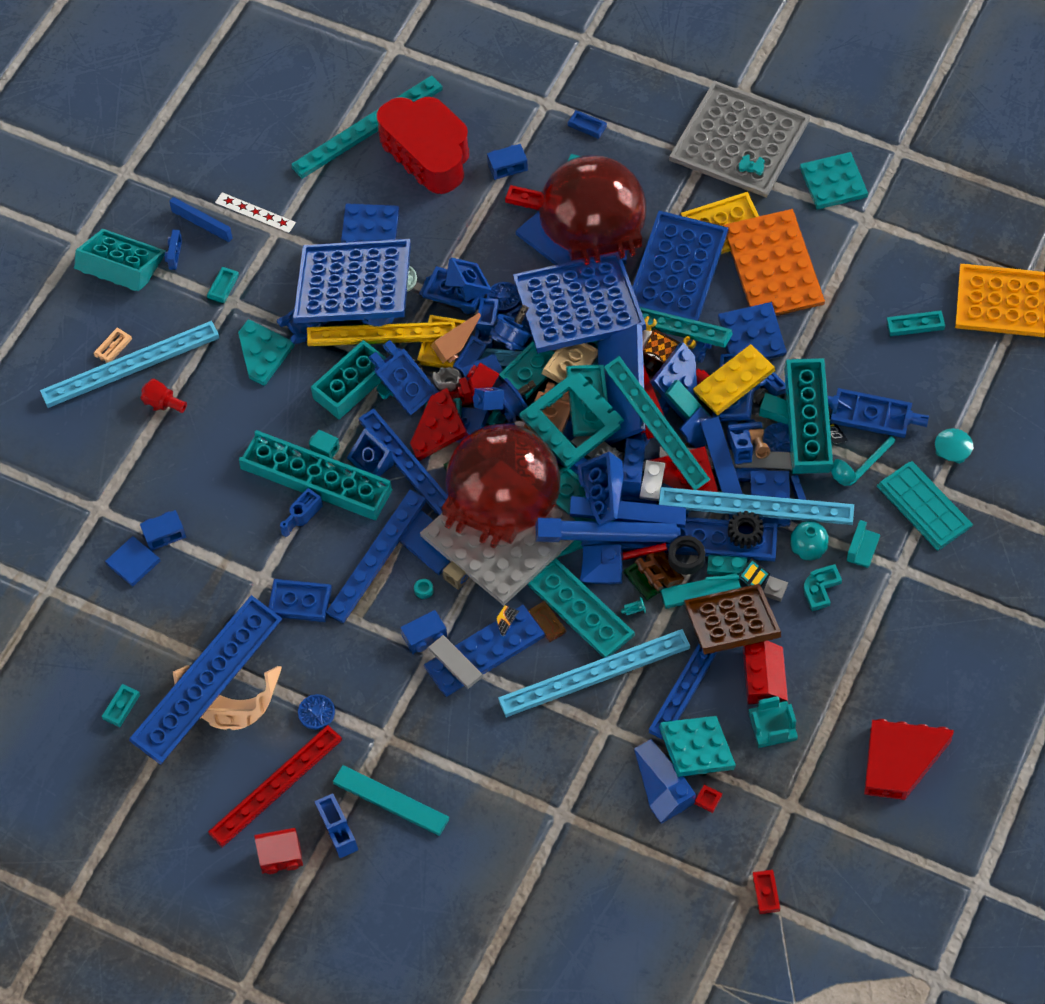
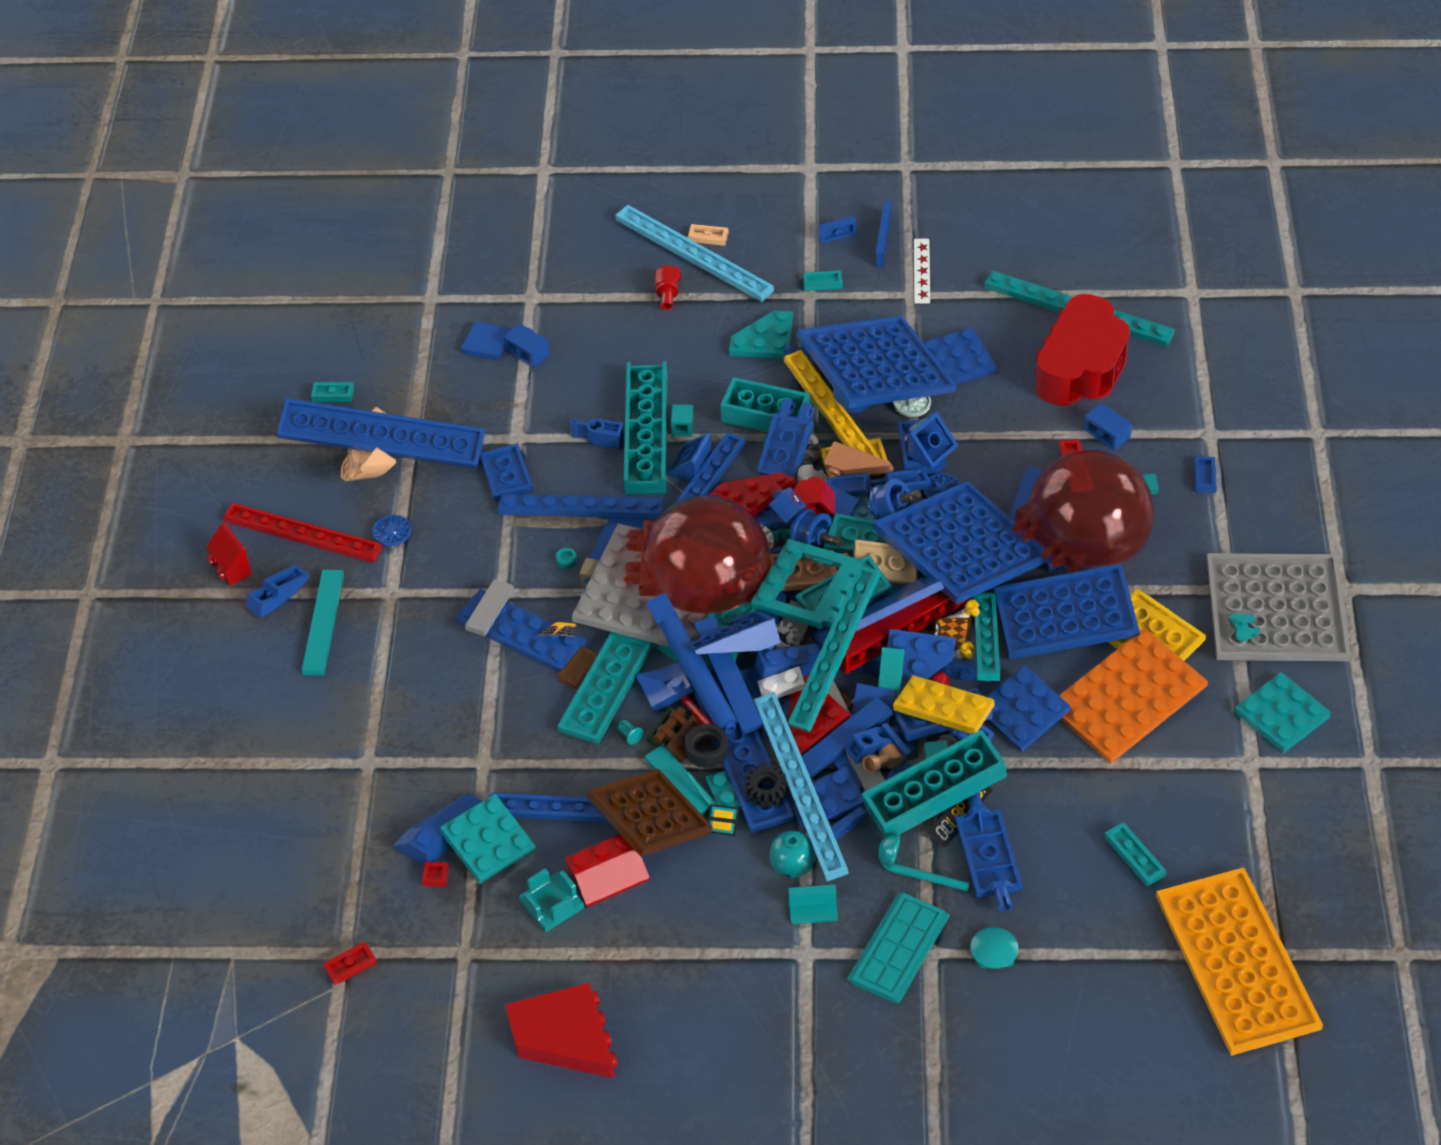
camera: 65 degrees right, 10 degrees down
(118, 259) = (802, 196): teal slope -> none
(423, 632) = (516, 572): blue brick -> none
(593, 673) = (534, 724): medium azure plate -> none
(775, 588) = (717, 845): light grey plate -> none
(817, 583) = (741, 879): teal plate -> none

